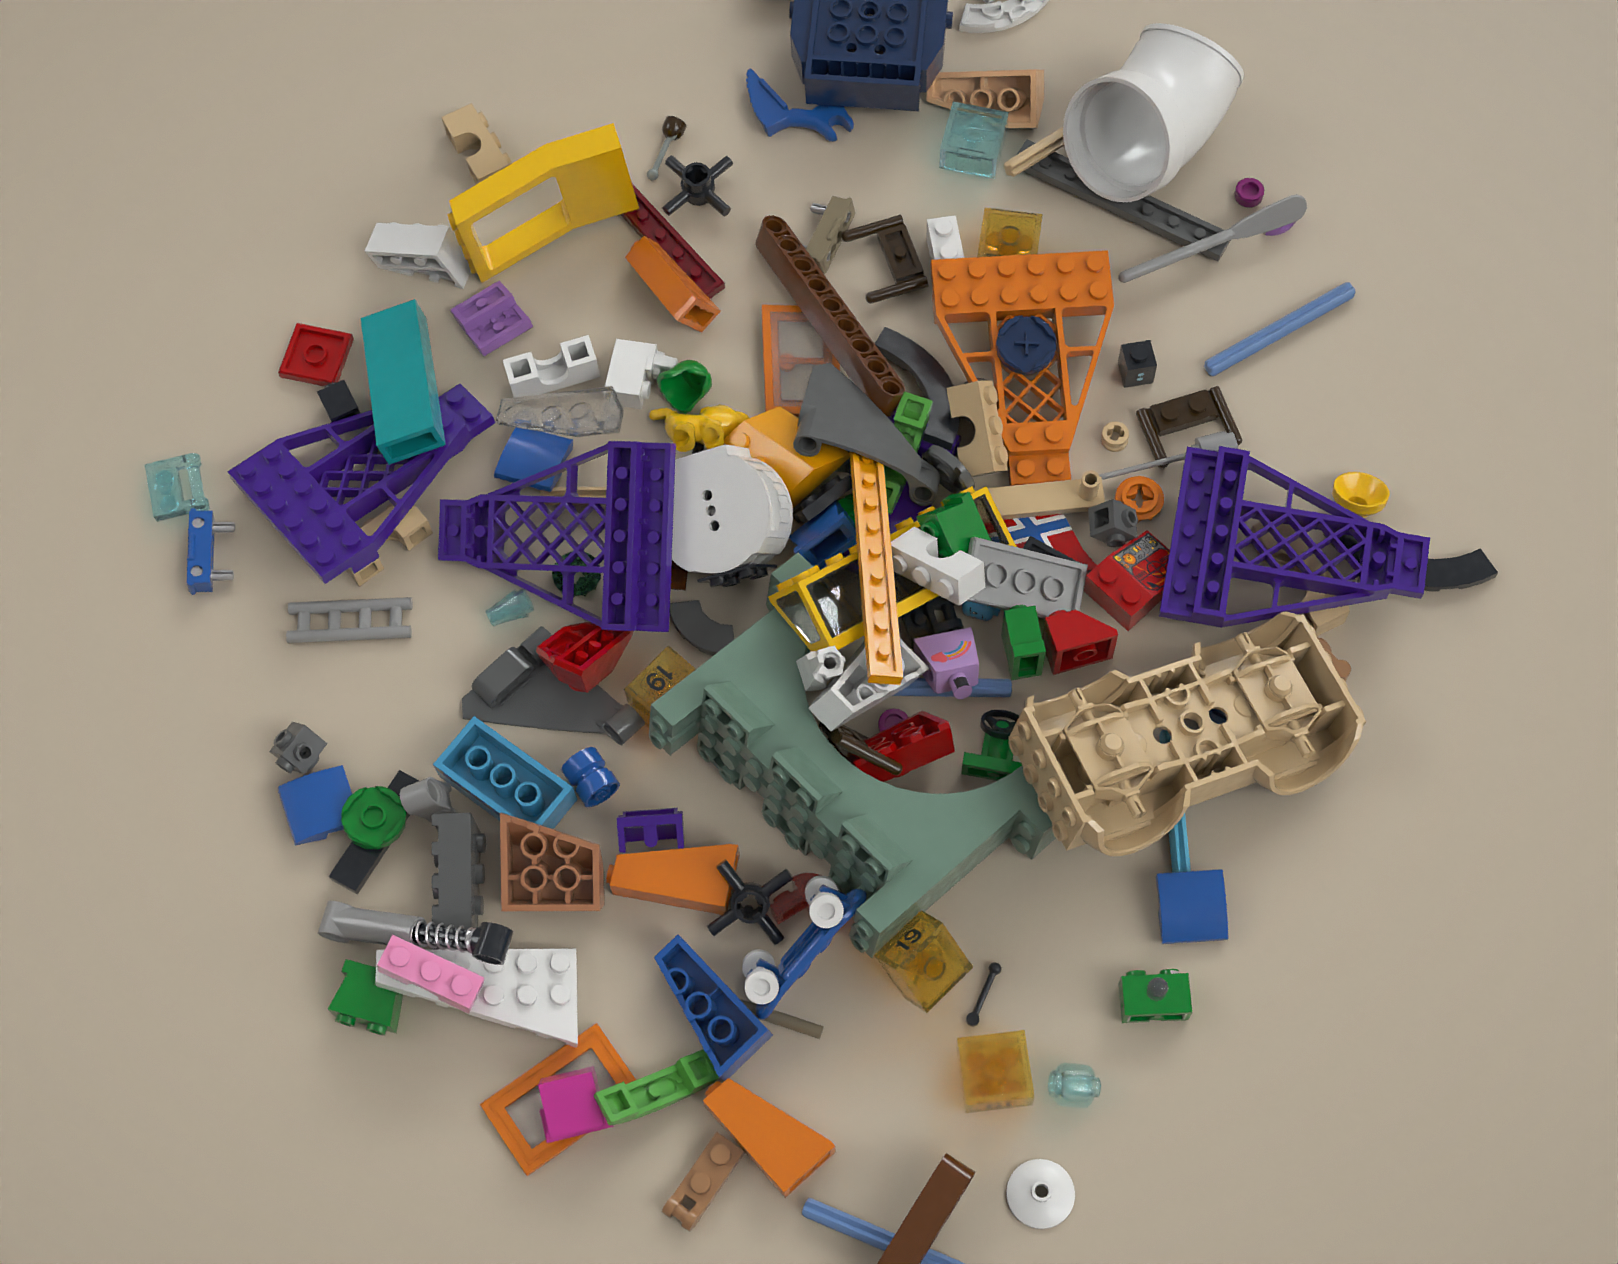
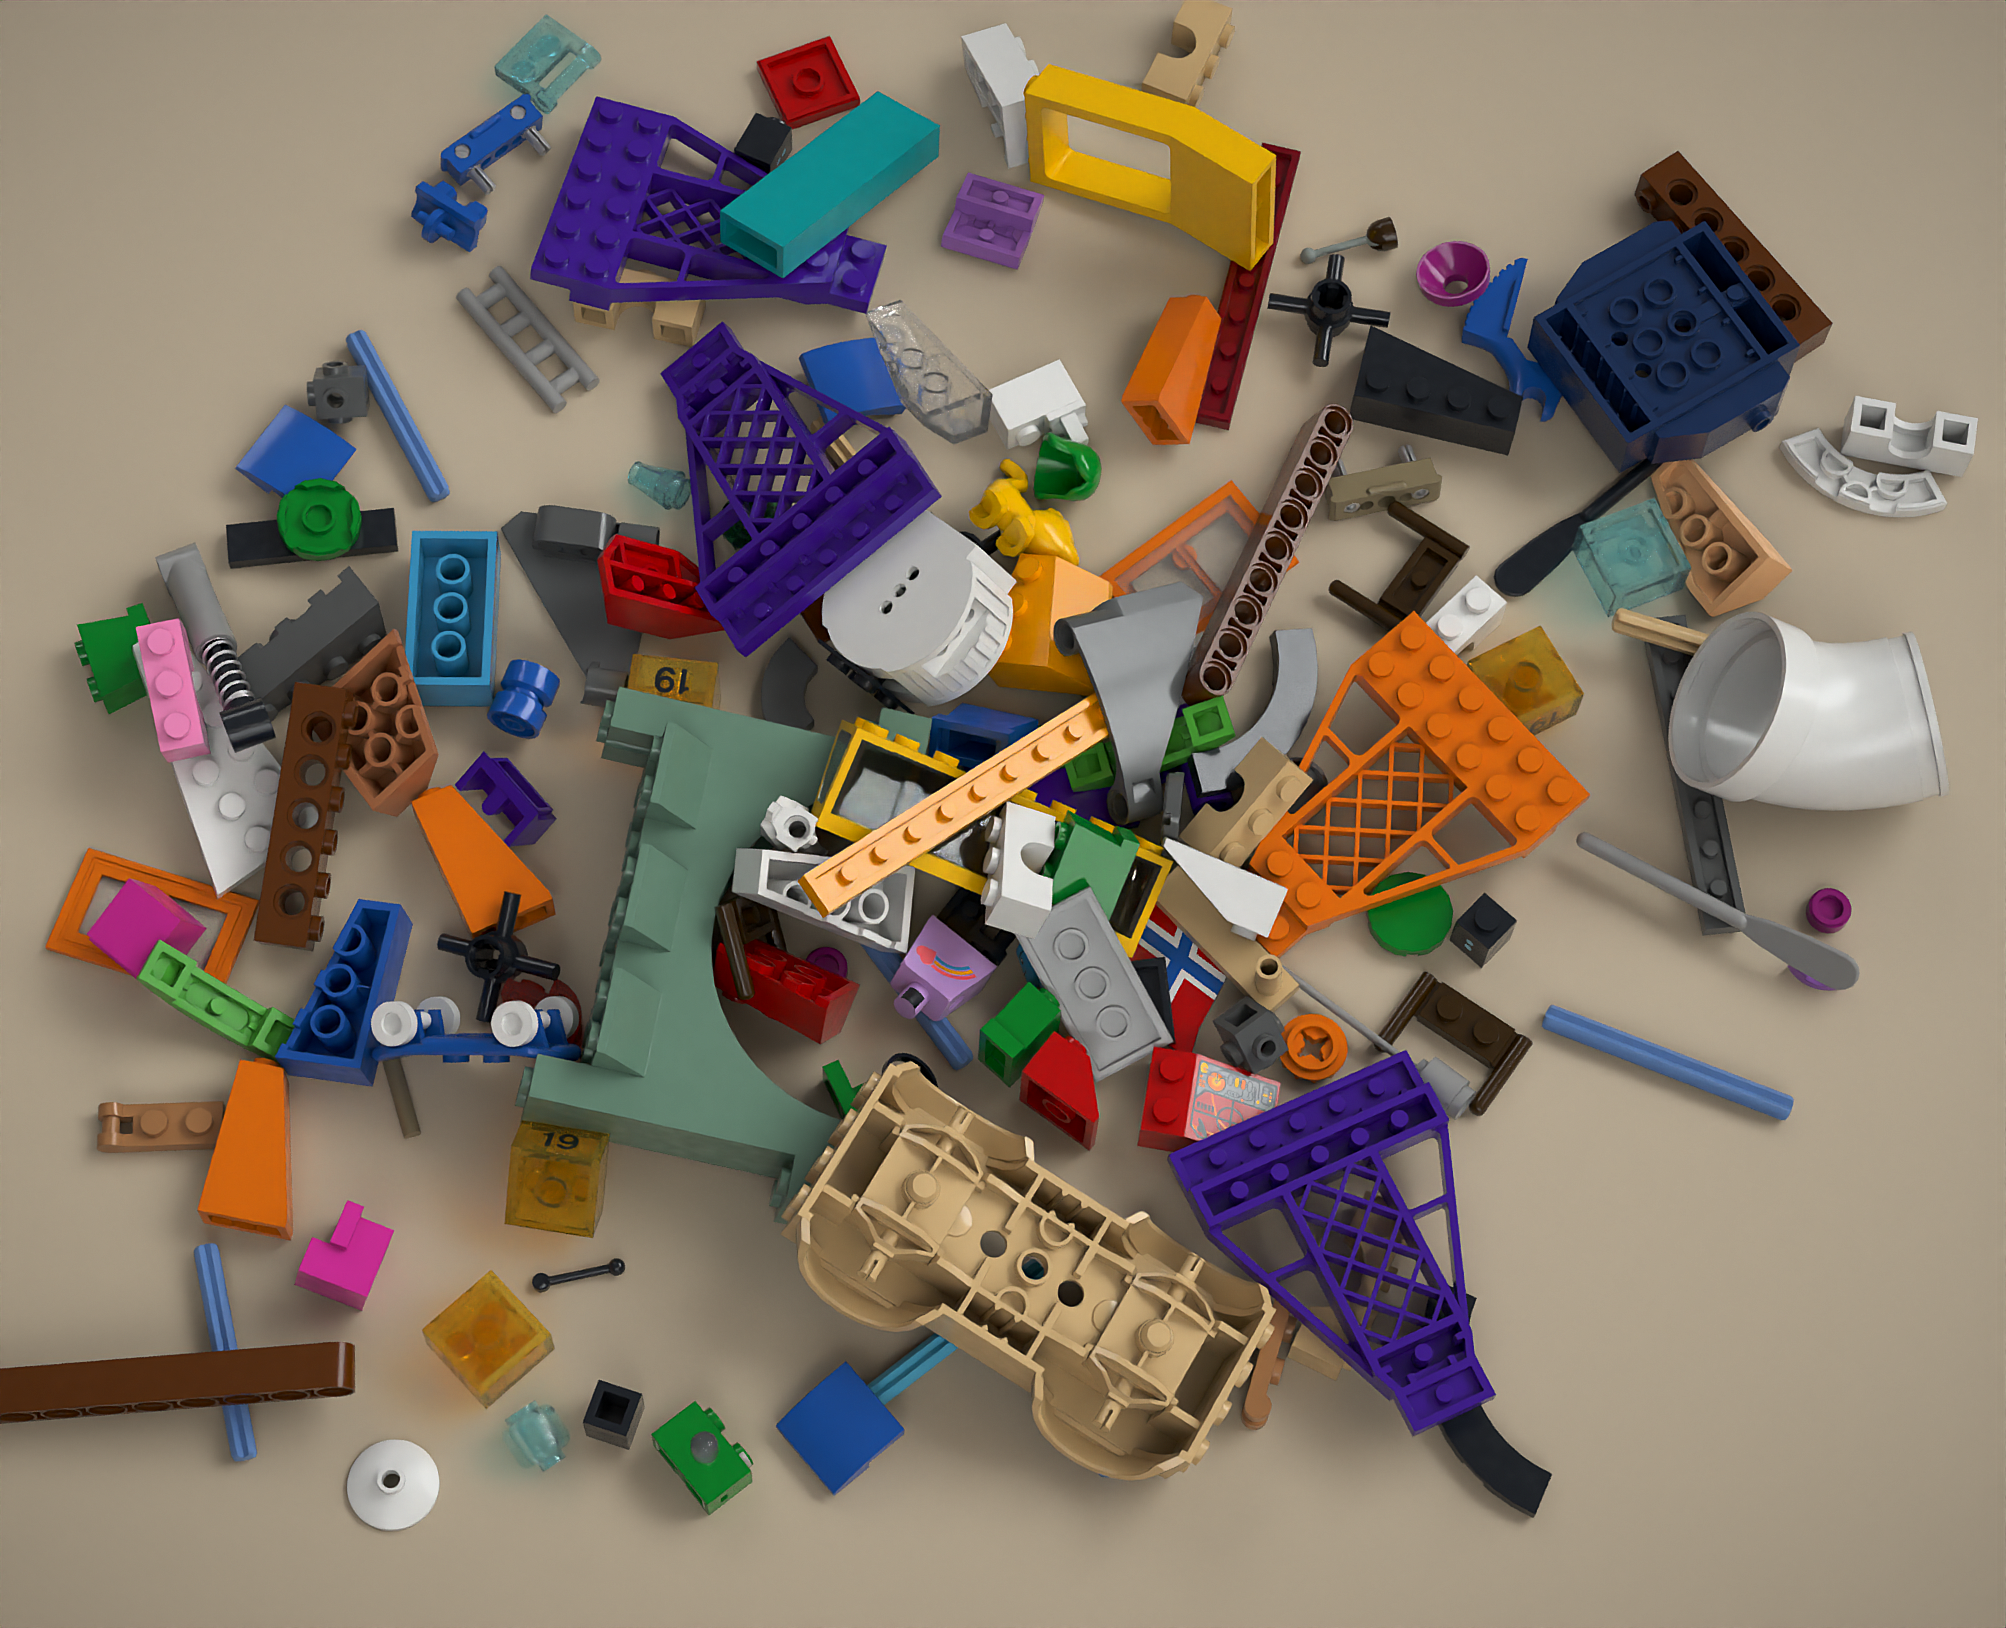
camera: 45 degrees right, 0 degrees up
(230, 610) = (447, 218): none -> blue hips
(340, 727) = (398, 417): none -> medium blue axle
(427, 798) = (375, 557): light grey piece -> none
(508, 898) = (308, 708): none -> reddish brown brick
(571, 366) = (946, 308): white arch -> none
(726, 100) = (1452, 263): none -> magenta piece
(794, 171) = (1431, 397): none -> black wedge
(816, 503) = (1018, 702): black plate -> none
(883, 1120) = (347, 1264): none -> dark pink plate
(930, 178) = (1545, 552): none -> black piece
(1025, 470) = (1236, 893): none -> white slope
(1026, 344) = (1392, 787): dark blue tile -> none
(1095, 1029) = (613, 1414): none -> black brick
(1104, 397) = (1411, 923): none -> green tile
(1122, 441) = (1369, 981): tan bush -> none
(1361, 489) = (1519, 1281): yellow piece -> none

